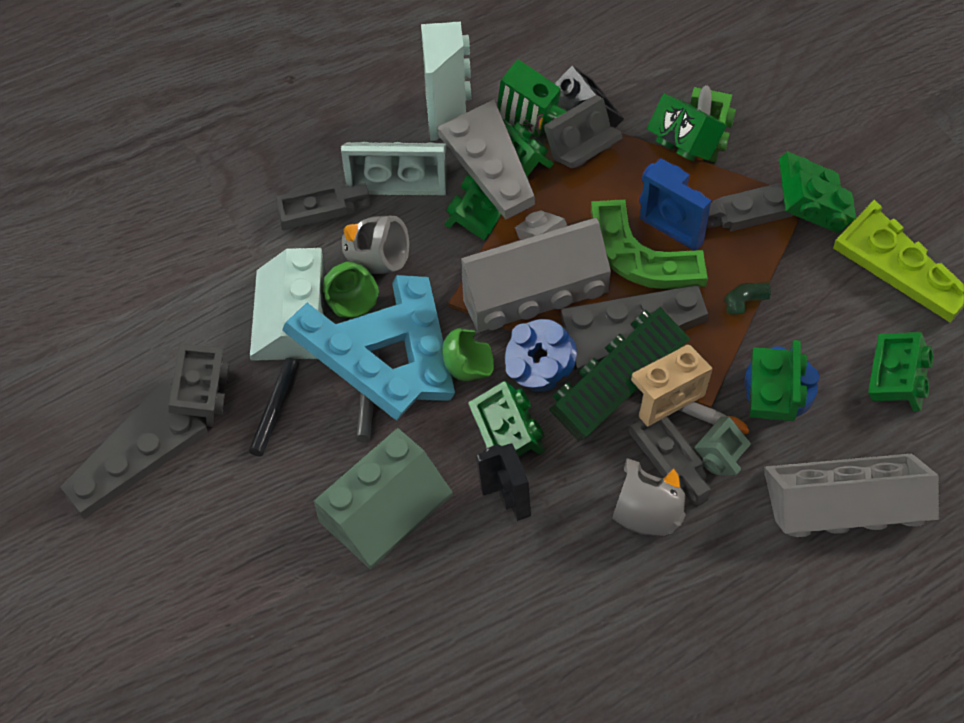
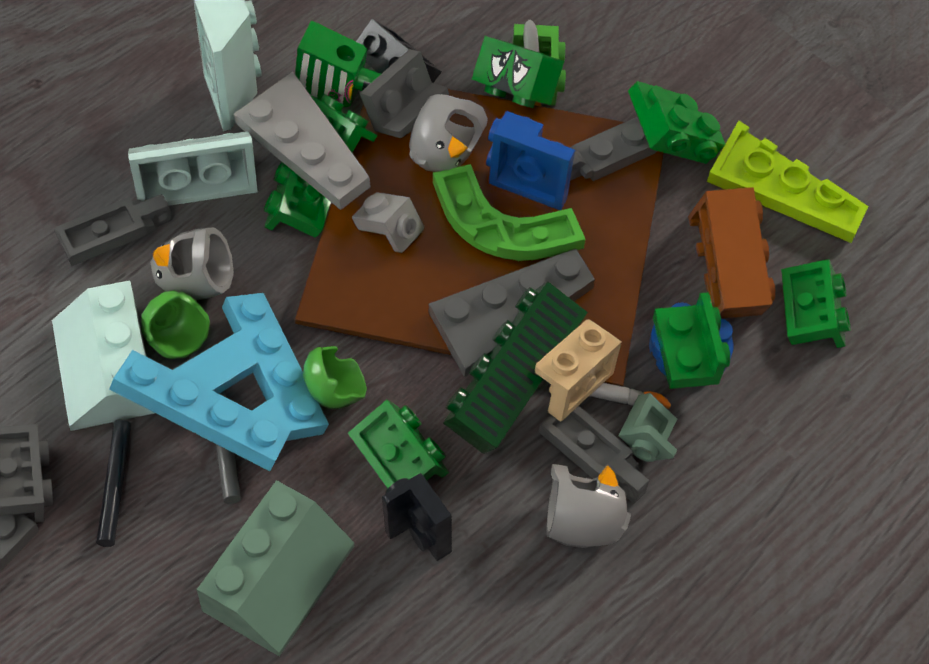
camera: 20 degrees left, 0 degrees up
(527, 341) = (435, 375): plate -> none
(535, 275) = (392, 270): light grey slope -> none
(603, 176) = (439, 143): none -> light grey piece
(746, 292) = (628, 248): clear green arm -> none
(837, 312) = (734, 252): none -> dark orange wedge
(852, 494) = (800, 454): light grey slope -> none

